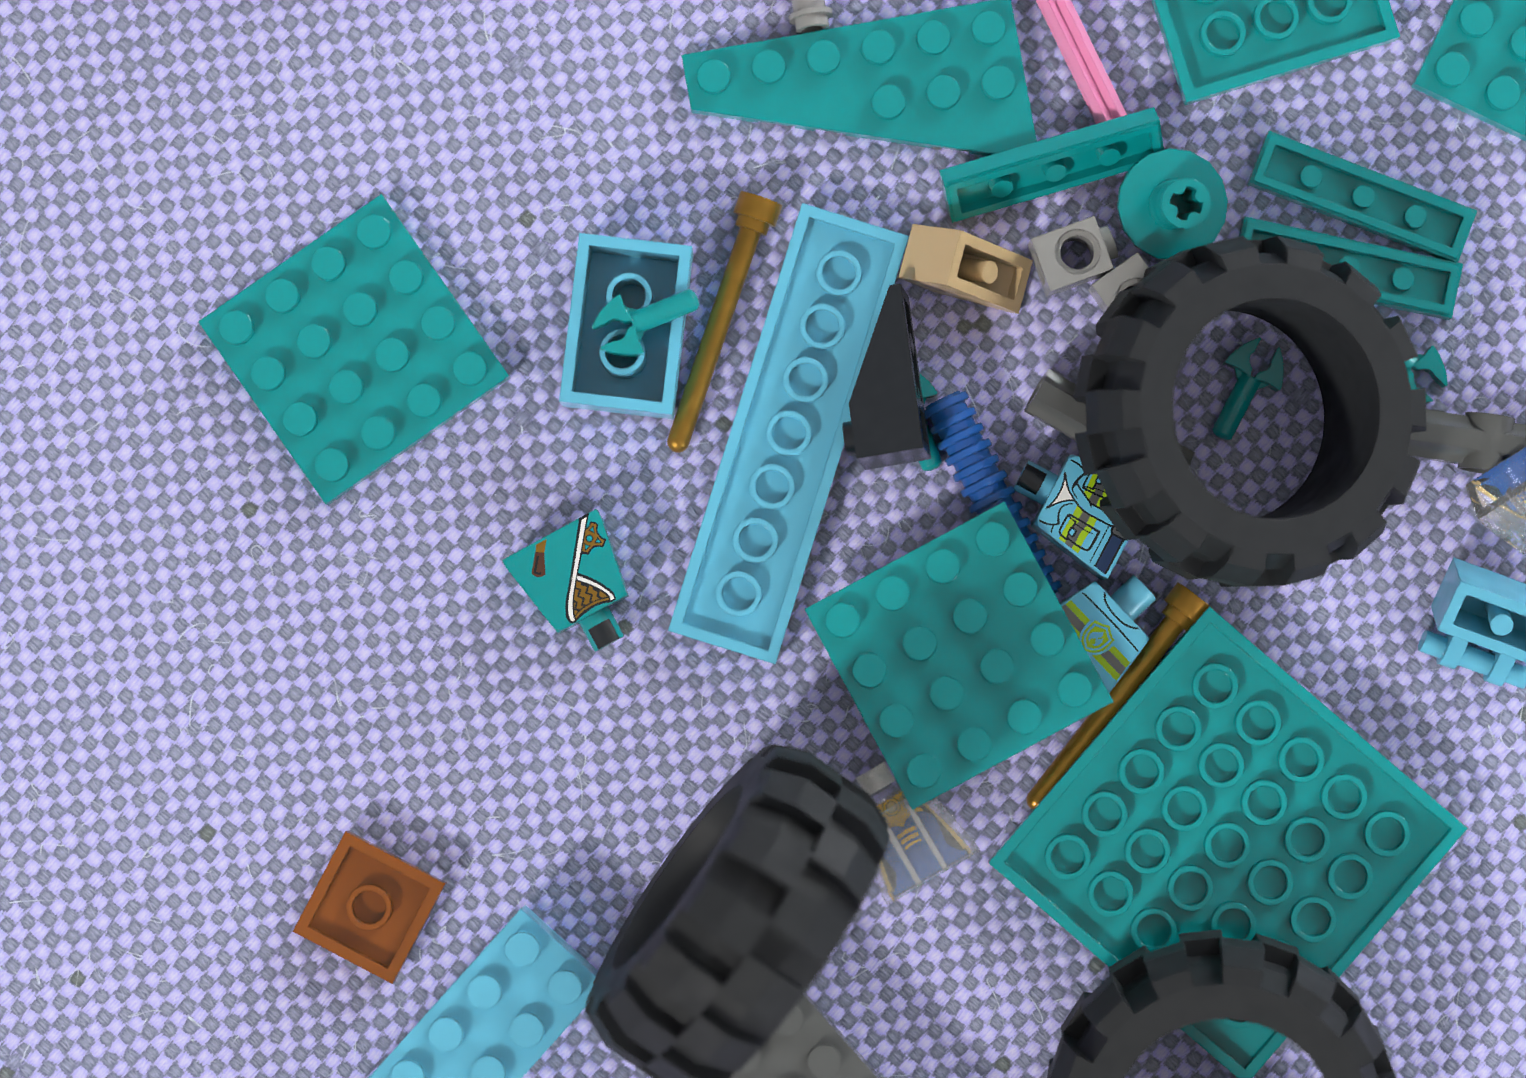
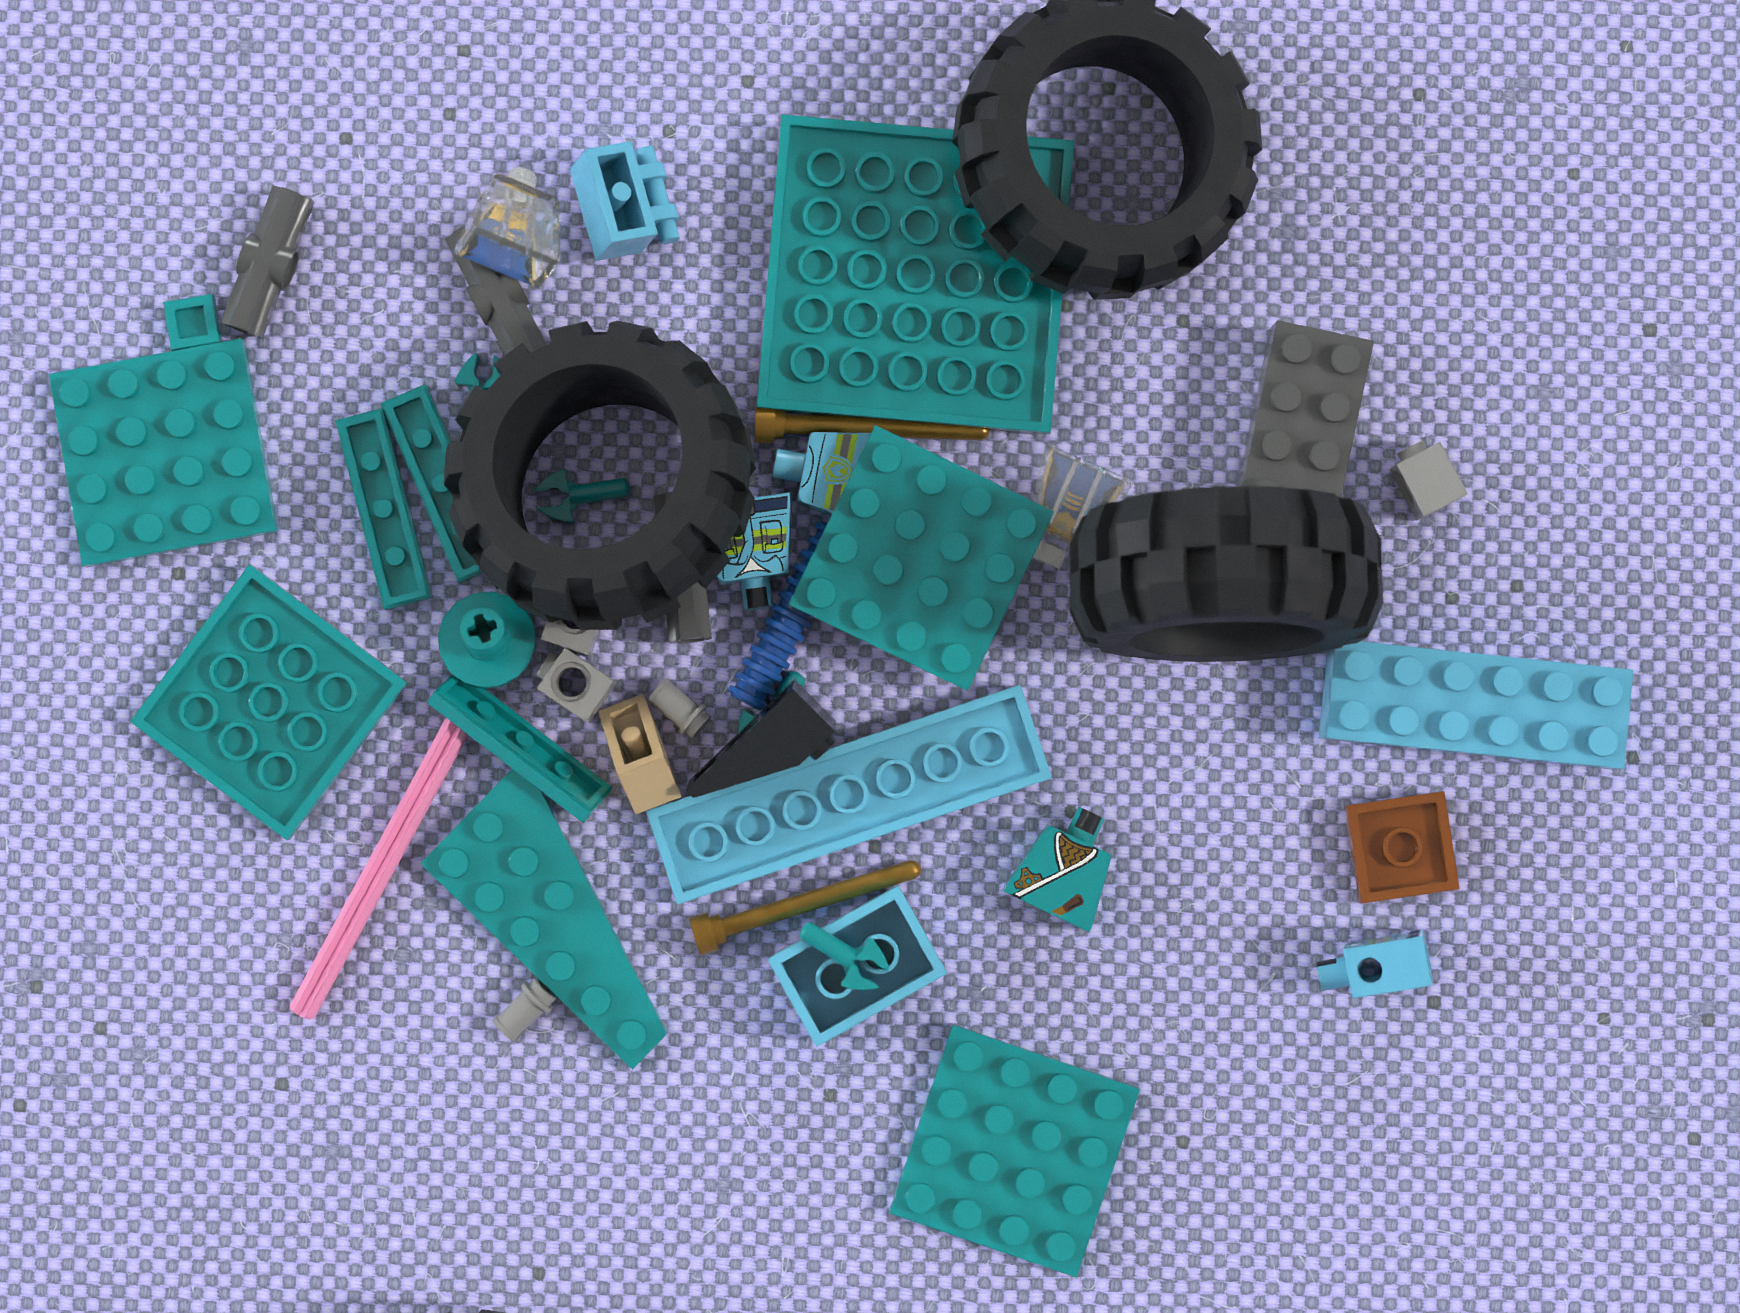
camera: 125 degrees left, 0 degrees up
(269, 829) = (1402, 960): none -> medium azure torso
(980, 335) = (679, 708): none -> light grey pin

